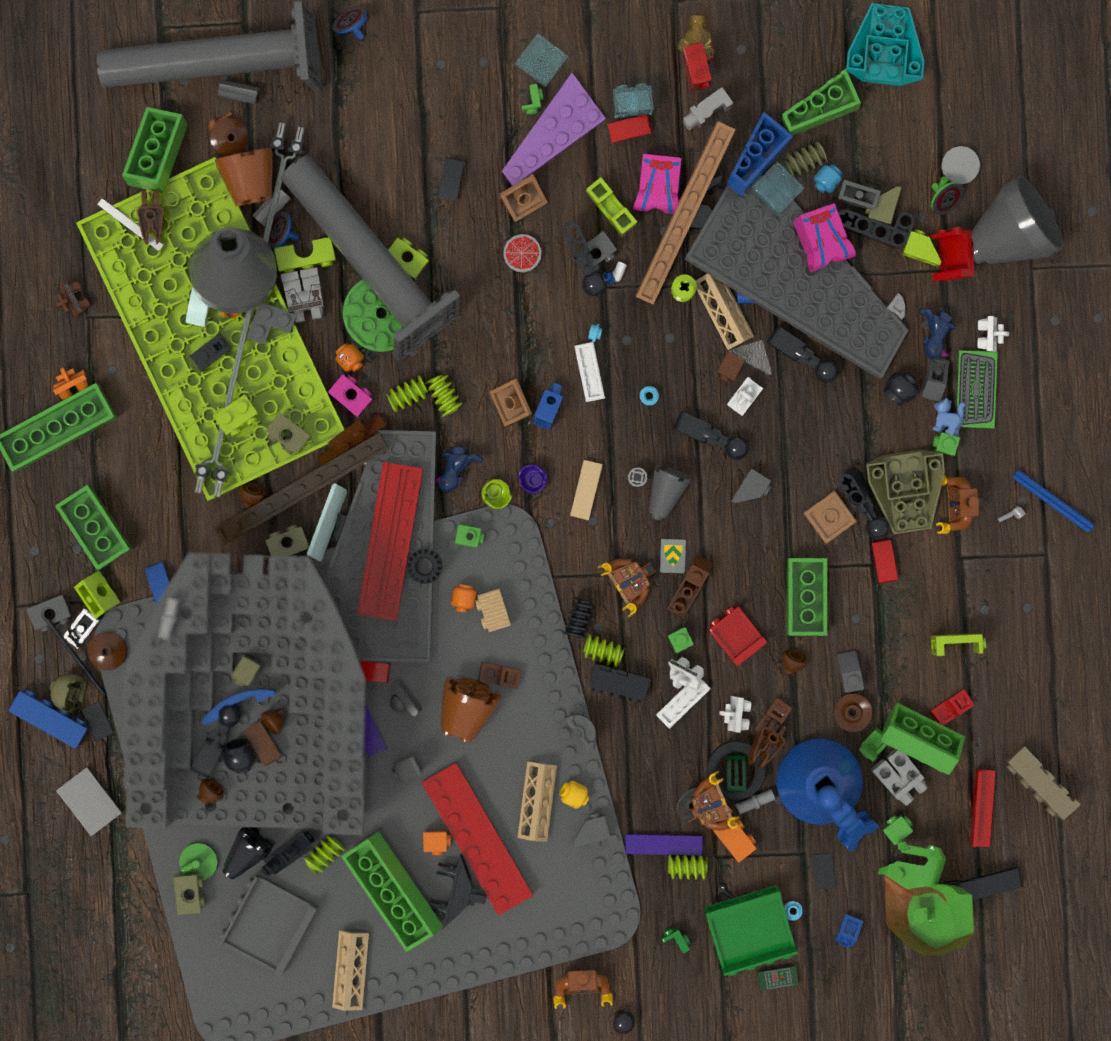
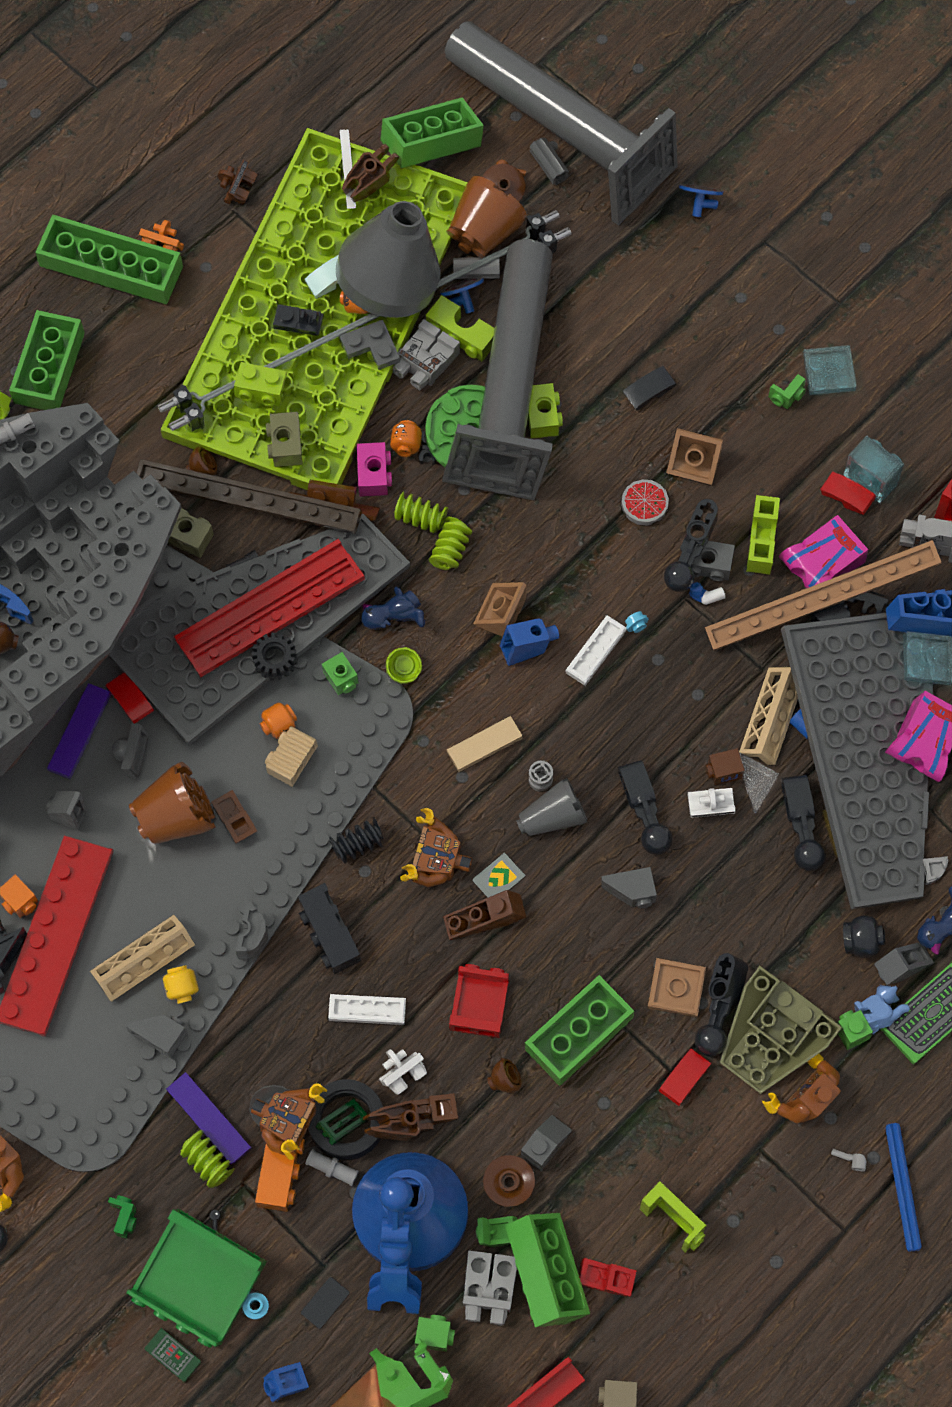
camera: 45 degrees right, 20 degrees down
(245, 670) = (27, 570): olive brick -> none
(327, 522) = (235, 545): light aqua slope -> none
(533, 478) = (449, 684): dark purple hair -> none
(560, 125) = (792, 436): medium lavender wing -> none
(603, 651) = (344, 891): lime piece -> none
(643, 395) = (627, 715): medium azure plate -> none
(680, 639) = (424, 951): bright green brick -> none
(683, 675) = (395, 984): white hips -> none
(684, 280) = (754, 658): lime piece -> none

